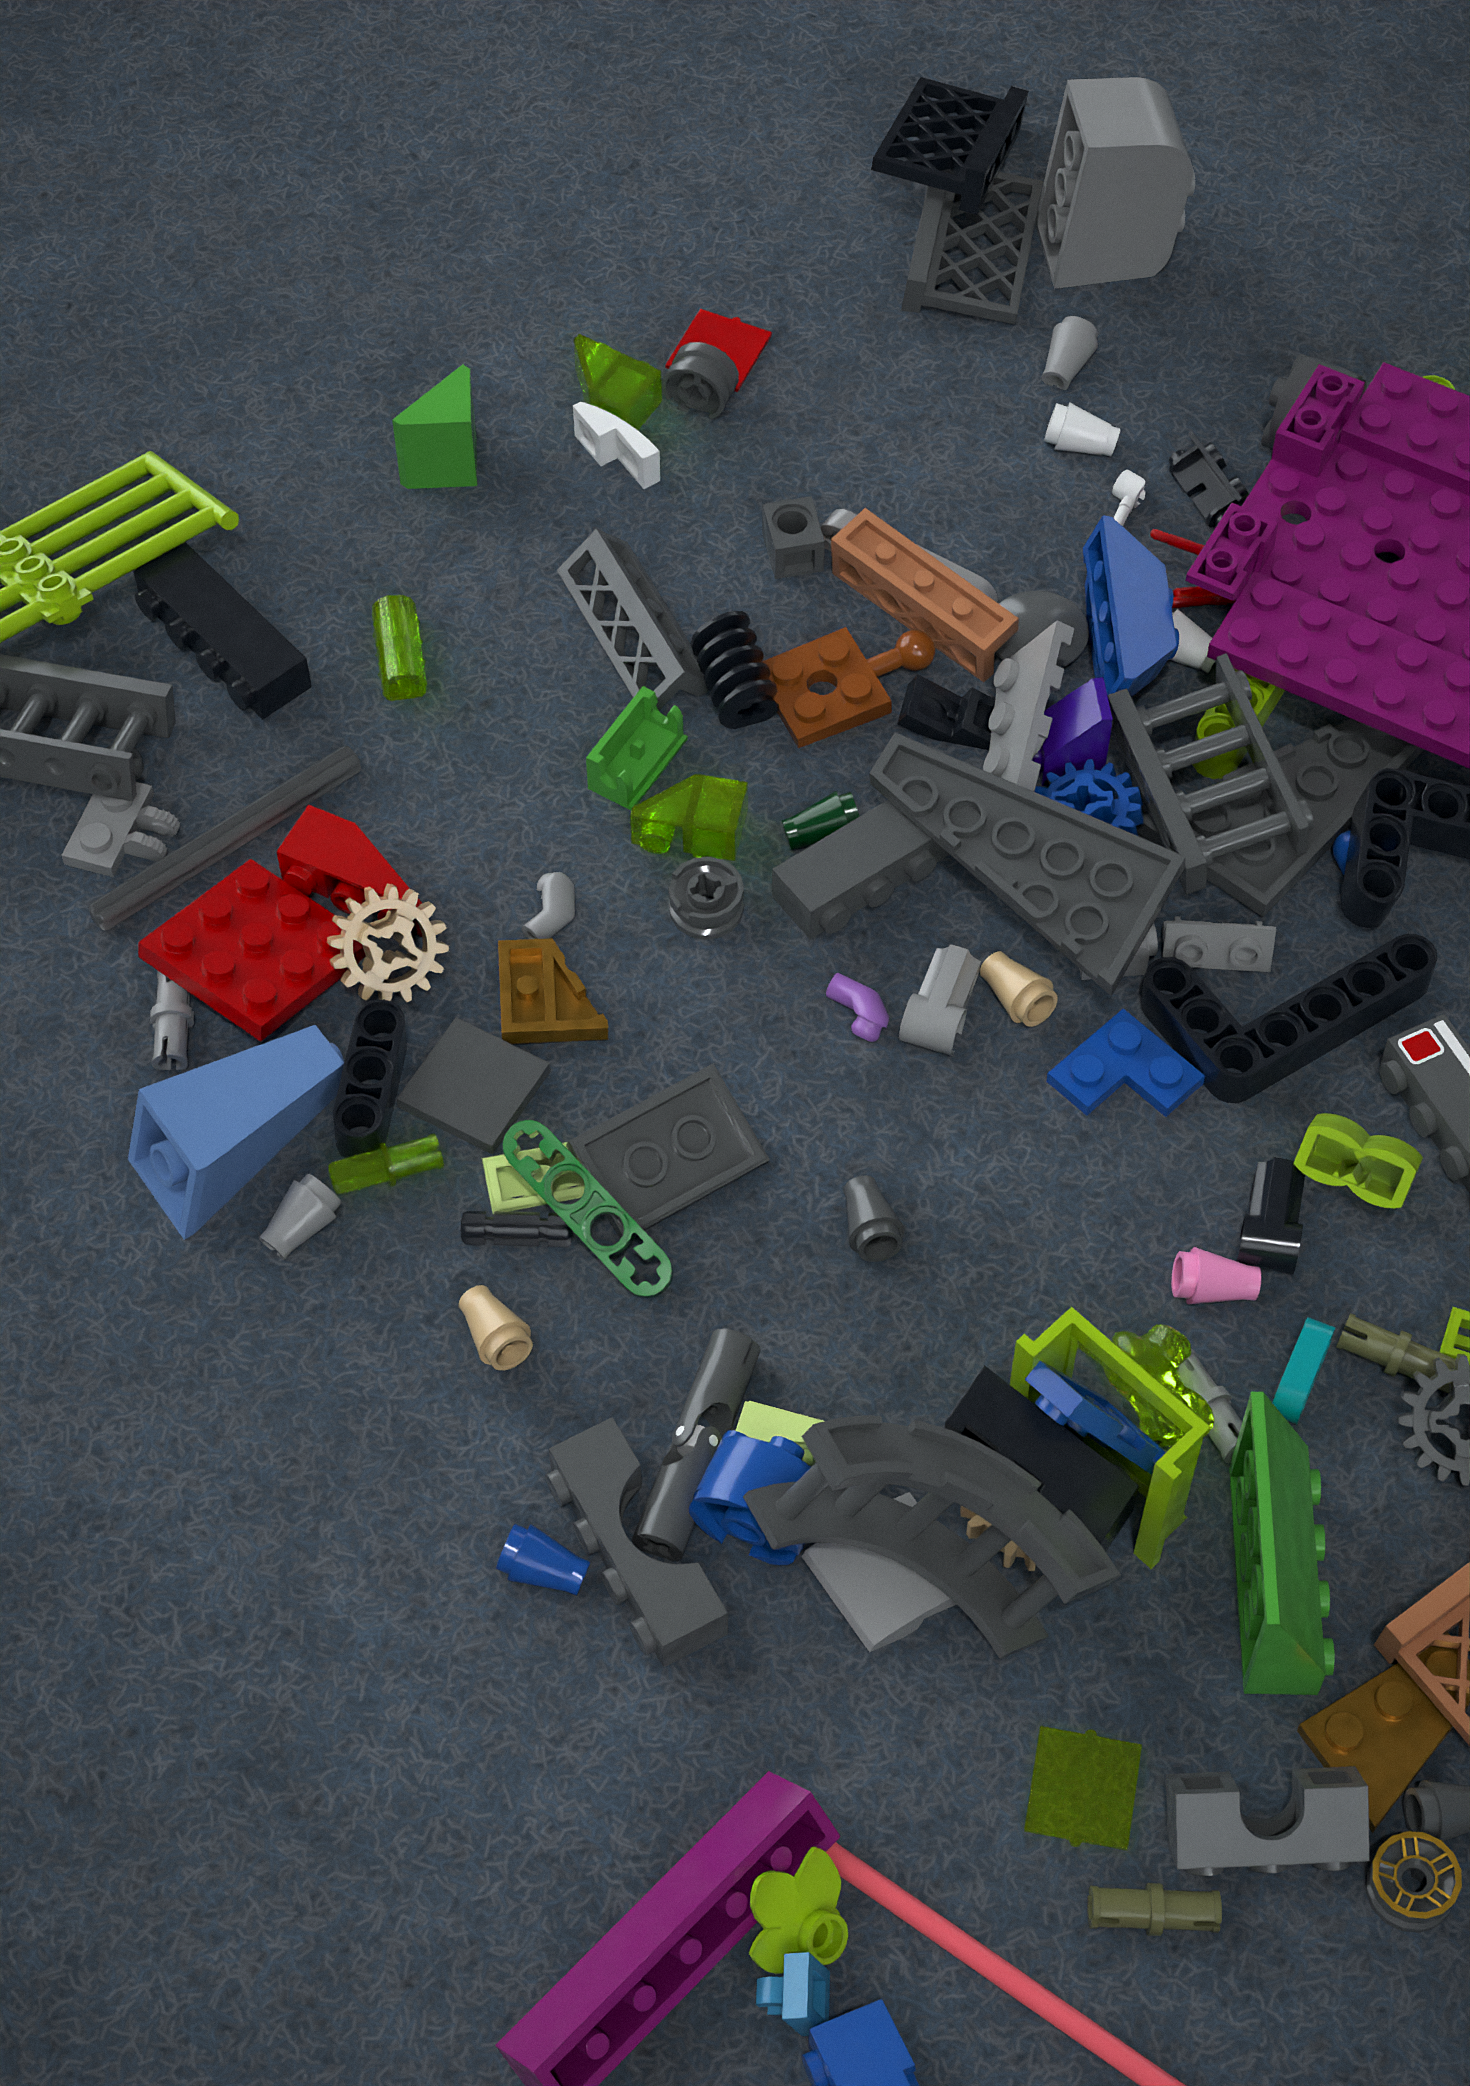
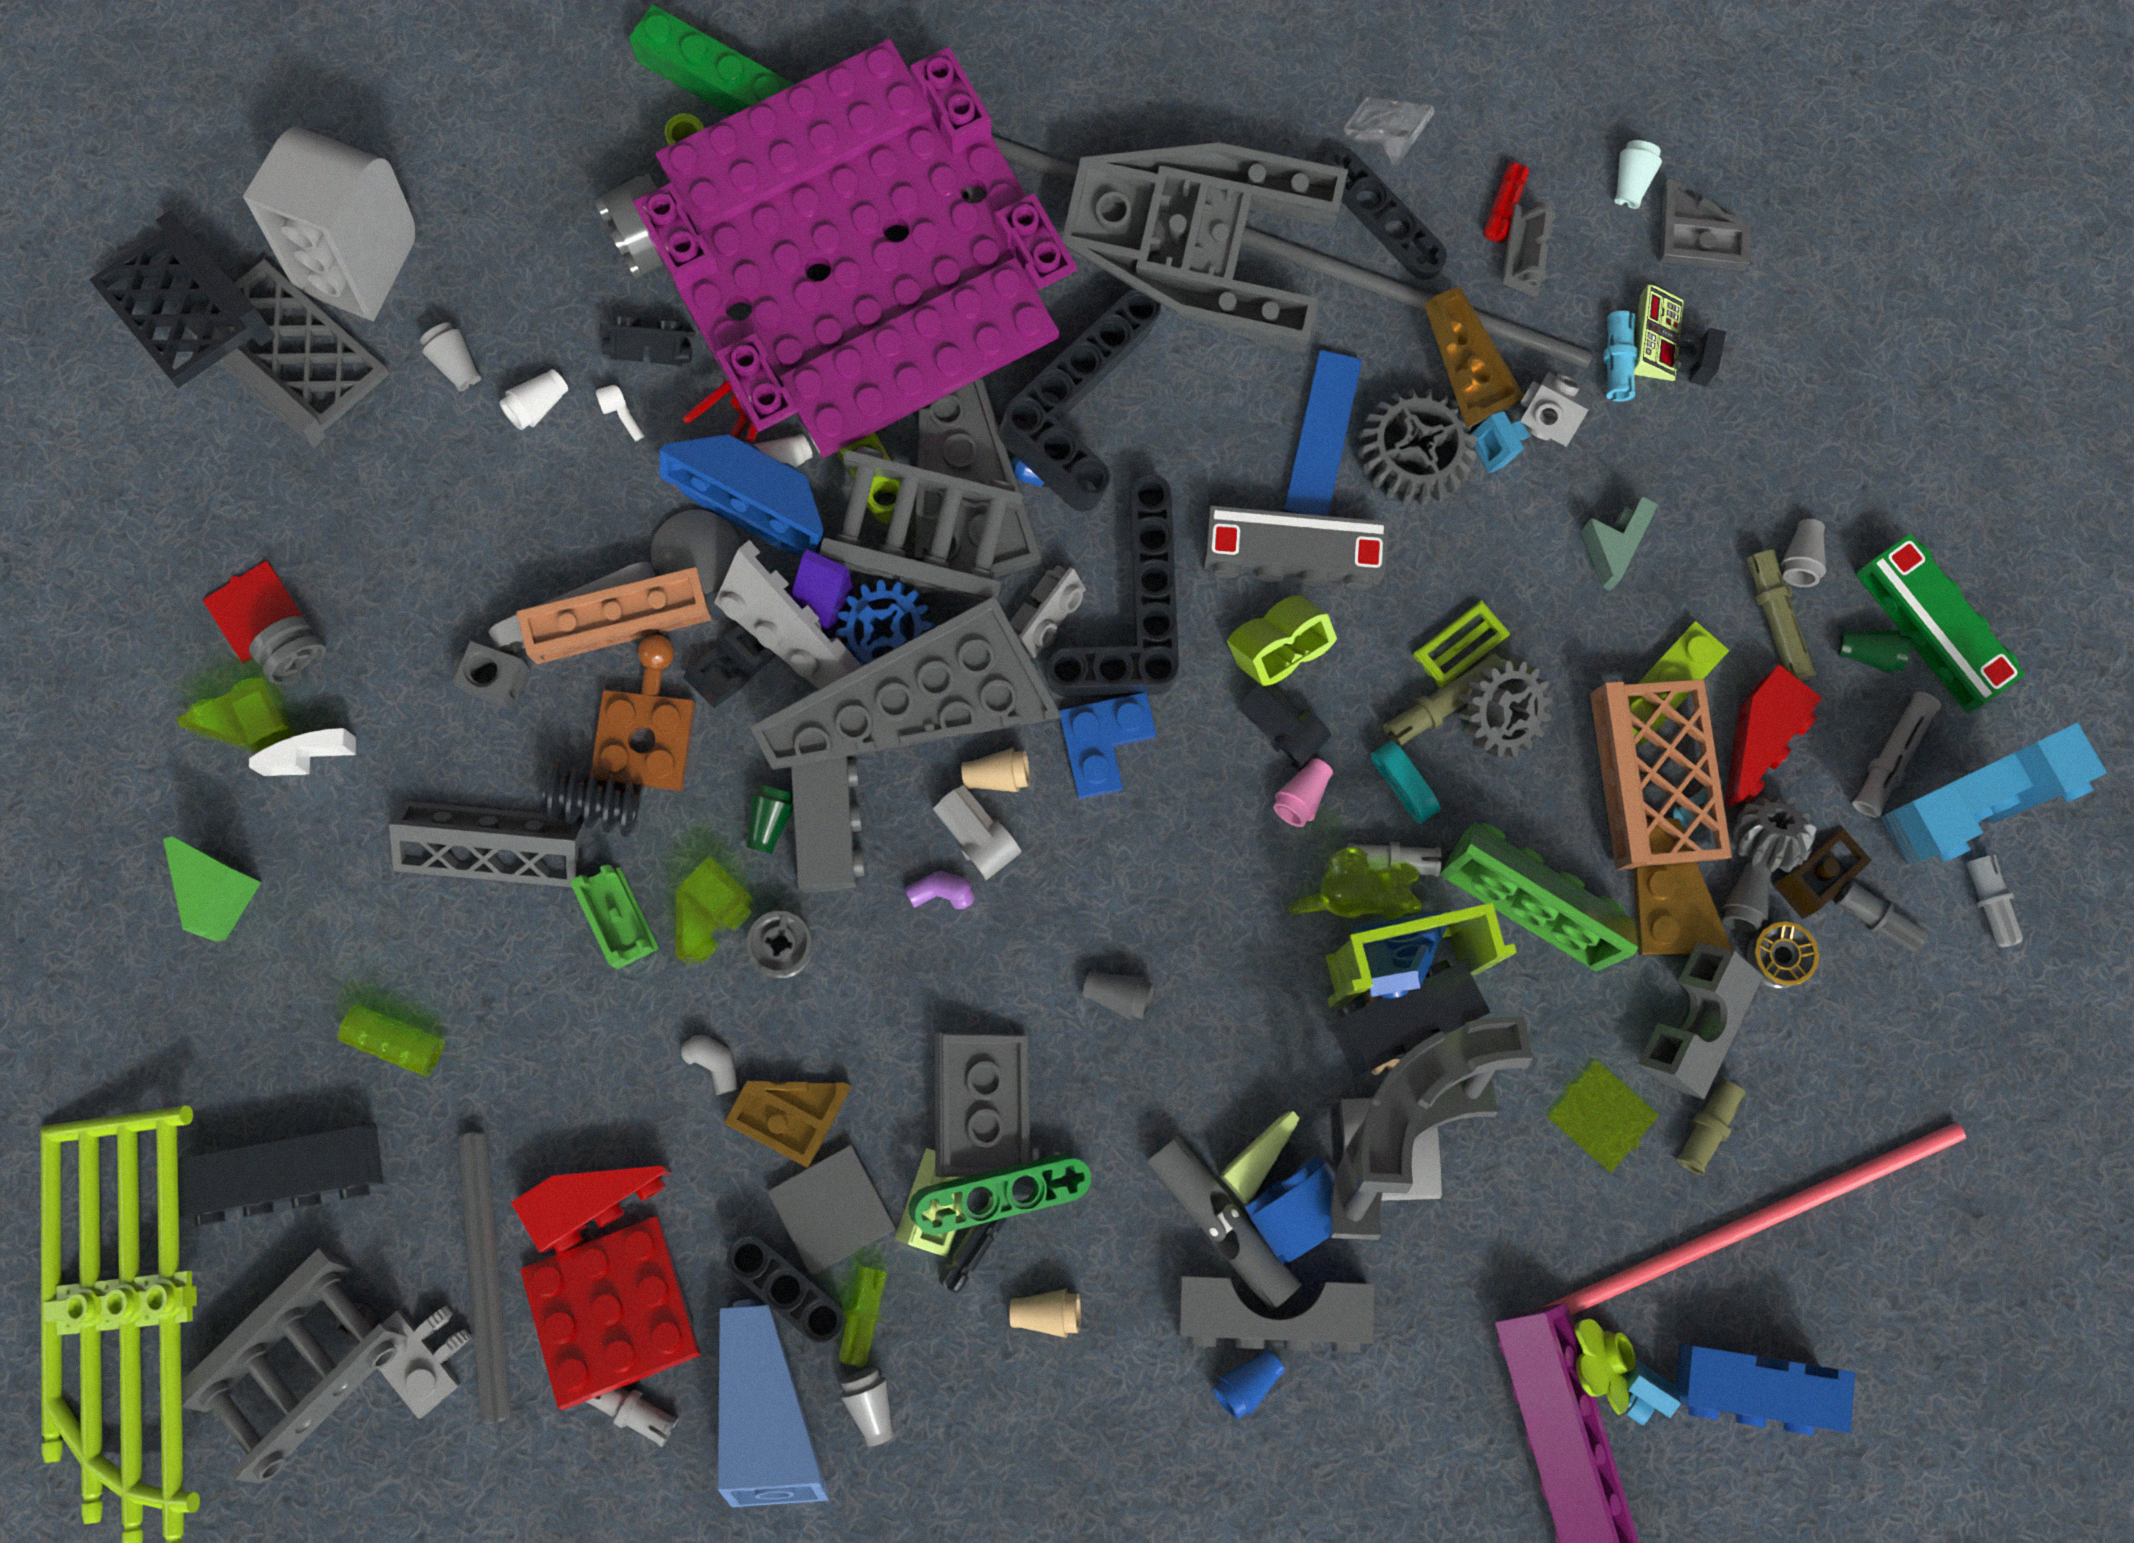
camera: 65 degrees left, 20 degrees up
(396, 923) = (680, 1212): tan gear -> none

